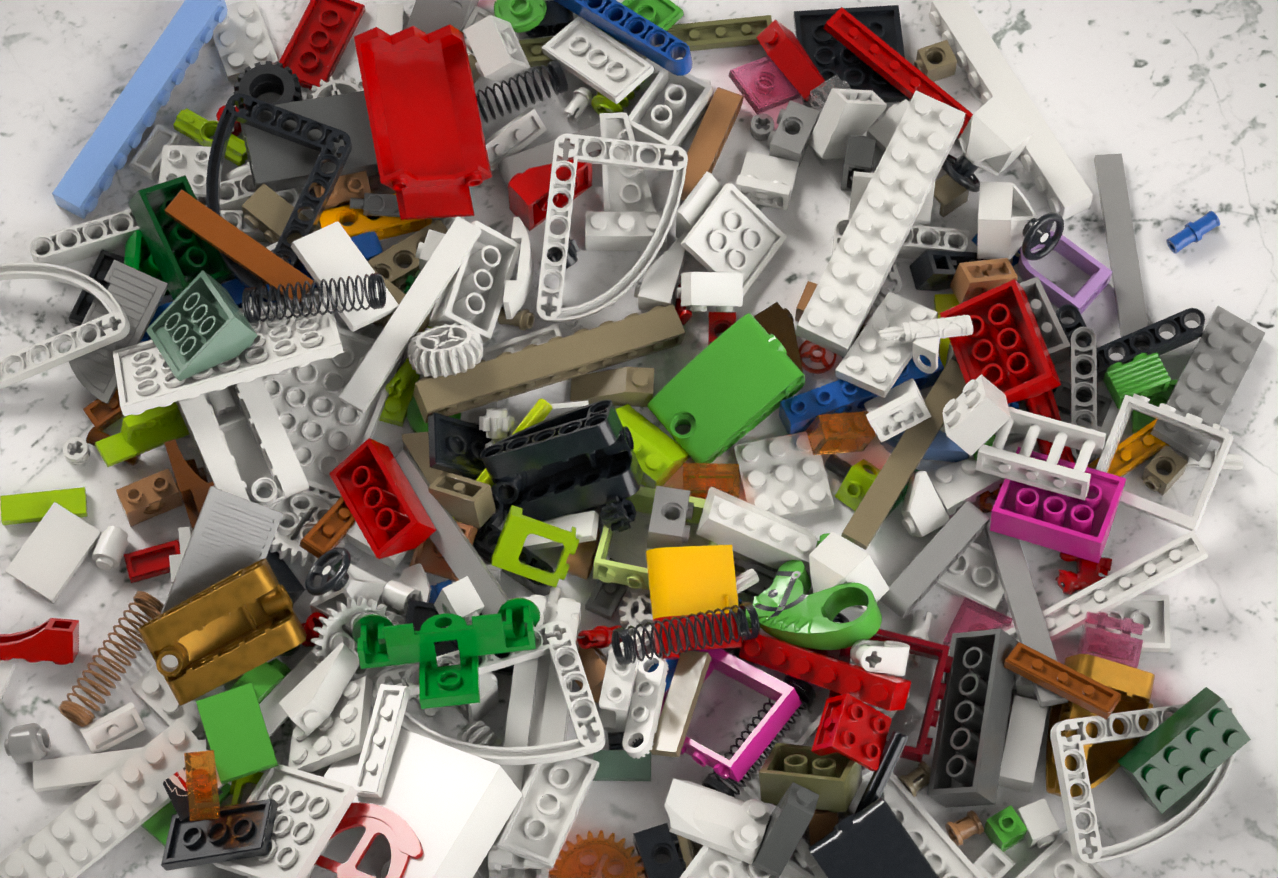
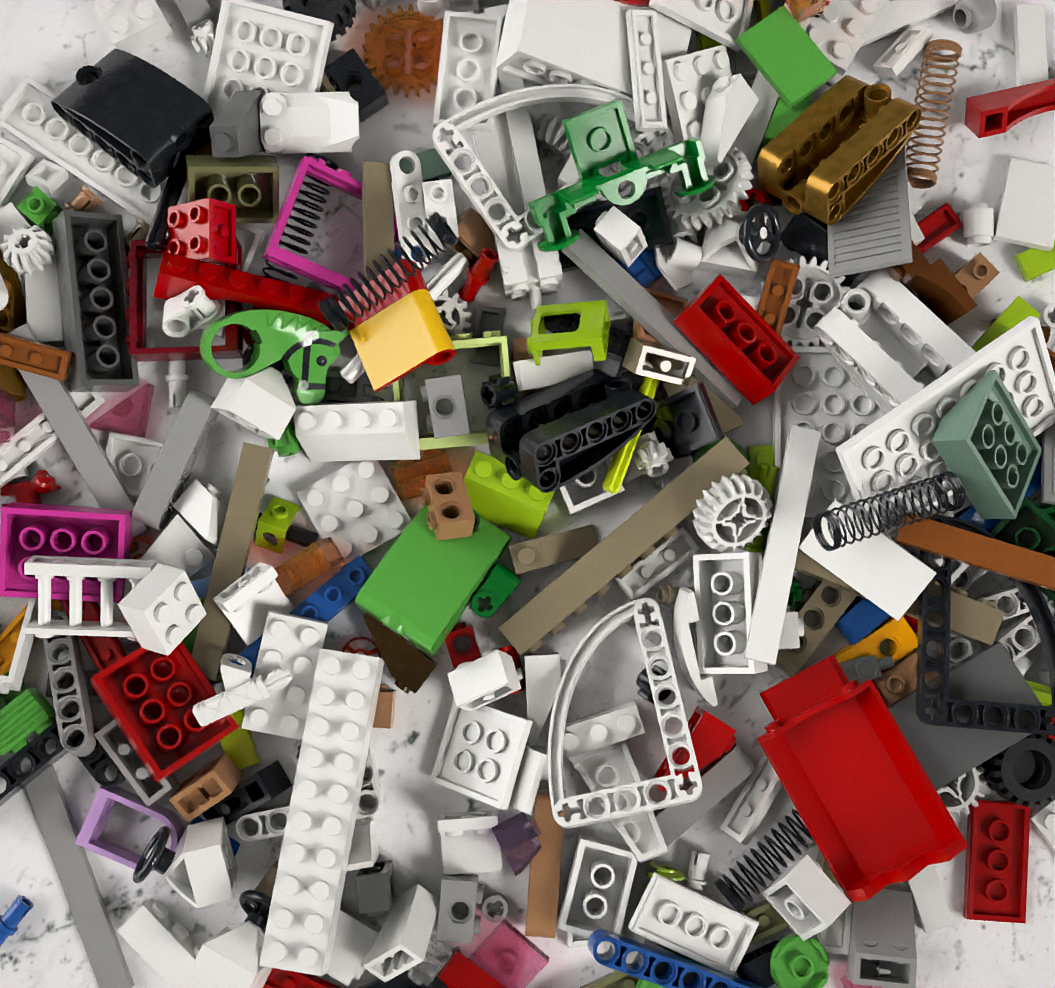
camera: 160 degrees right, 20 degrees up
(671, 365) = (498, 586): none -> green piece
(688, 434) = (448, 499): none -> medium nougat brick
(723, 161) = (518, 840): none -> clear purple slope
(1033, 785) = (27, 249): none -> white gear

